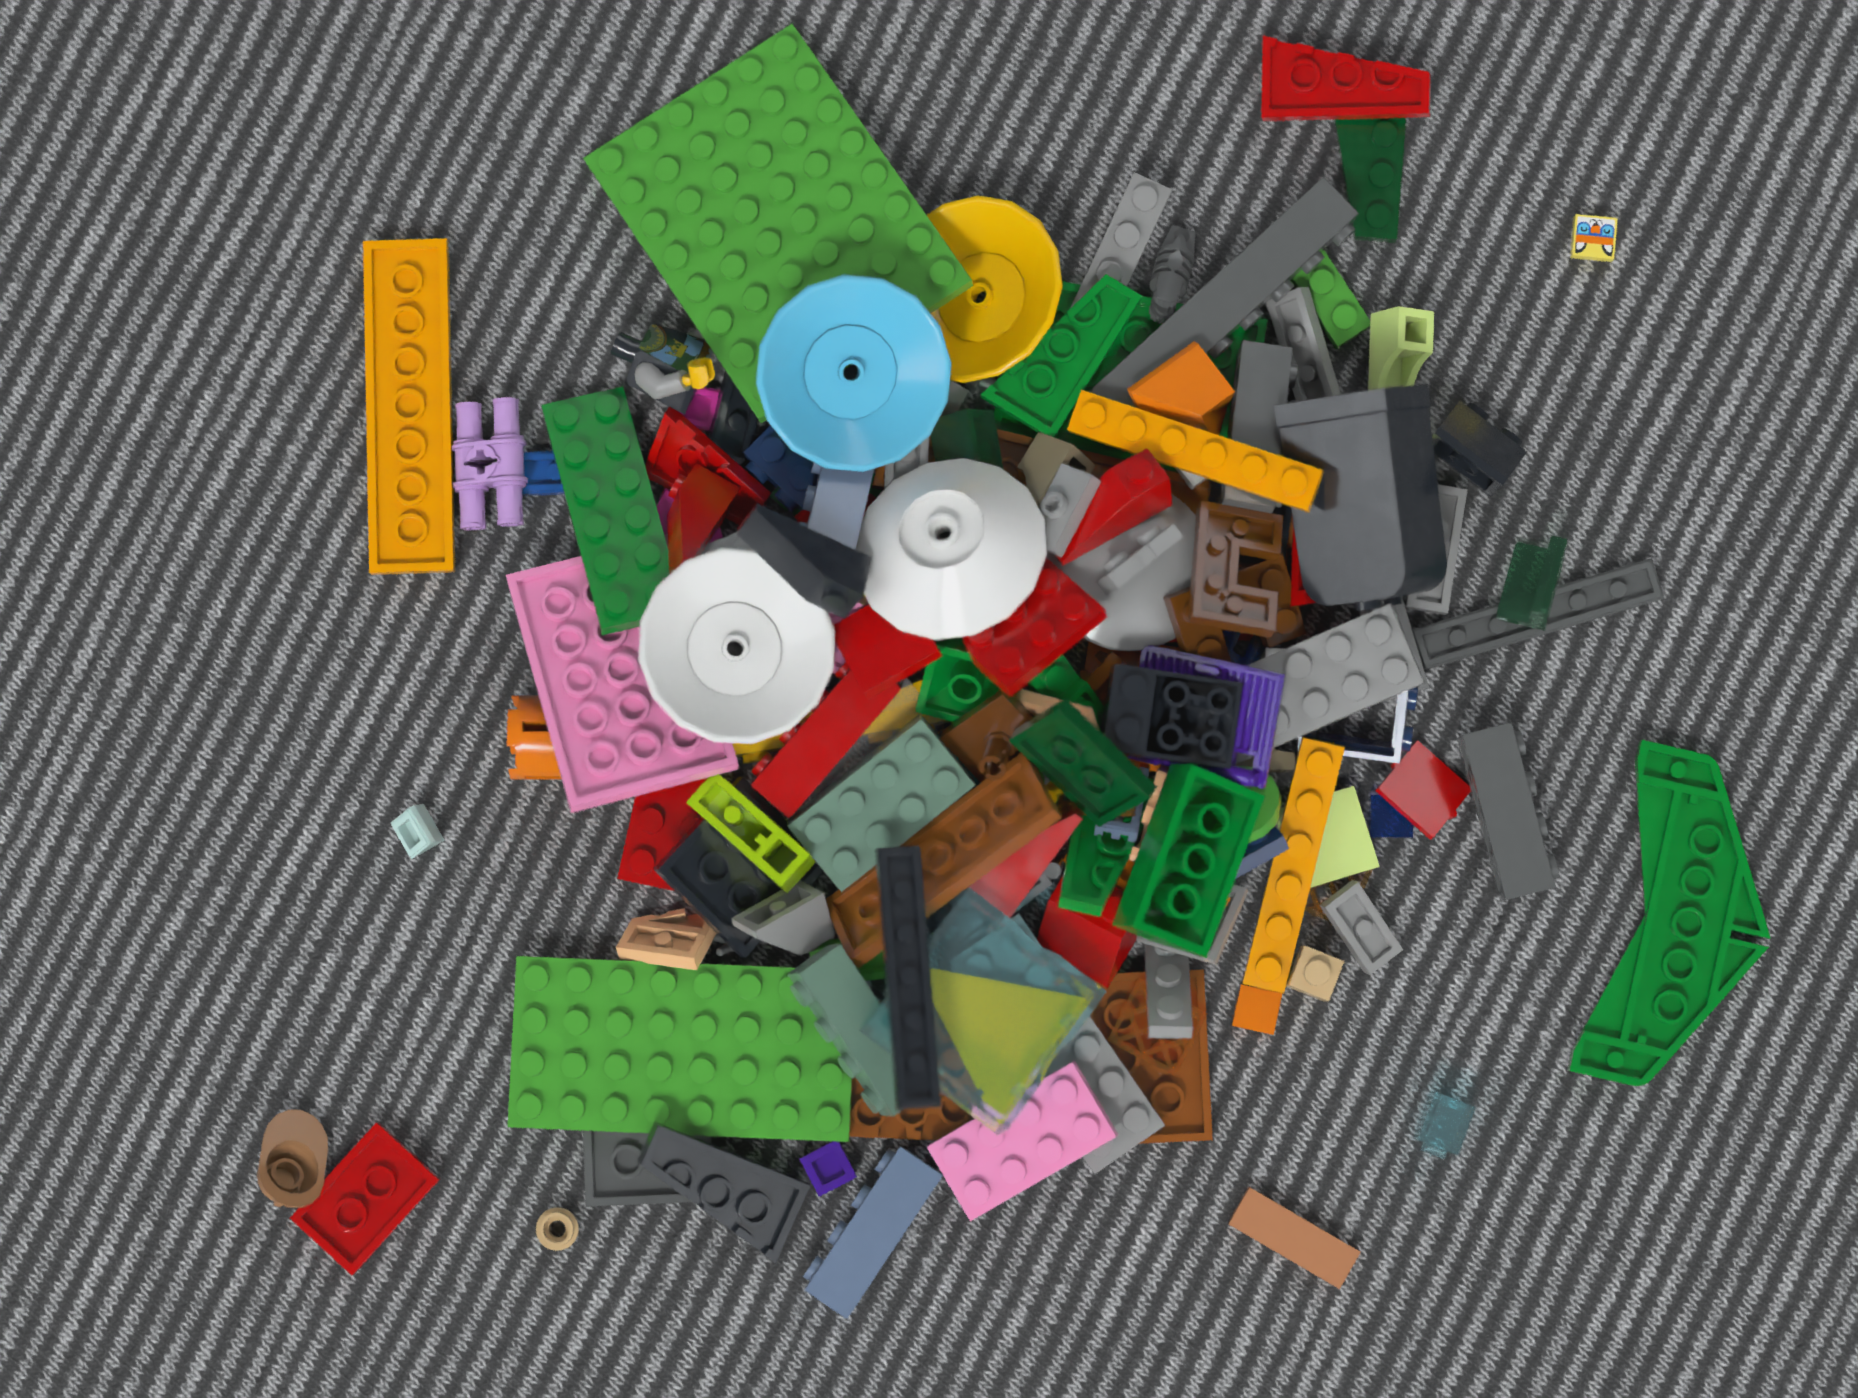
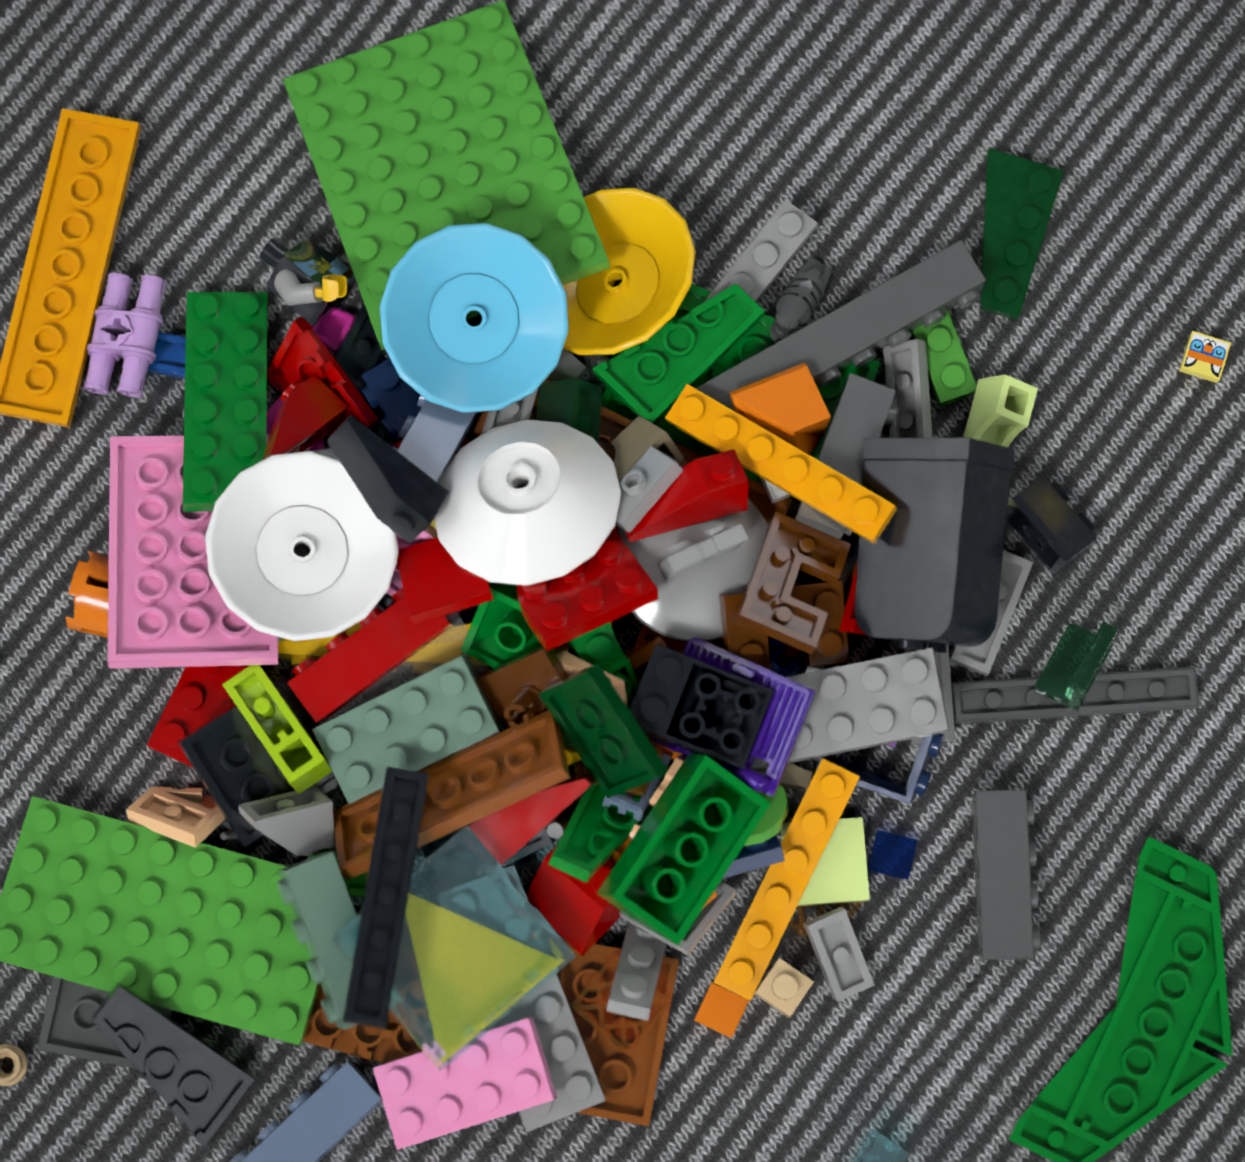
camera: 15 degrees right, 5 degrees down
(828, 1167) = (276, 1066): dark purple plate -> none
(1332, 86) = (983, 161): red wing -> none
(1423, 790) = (928, 836): piece -> none

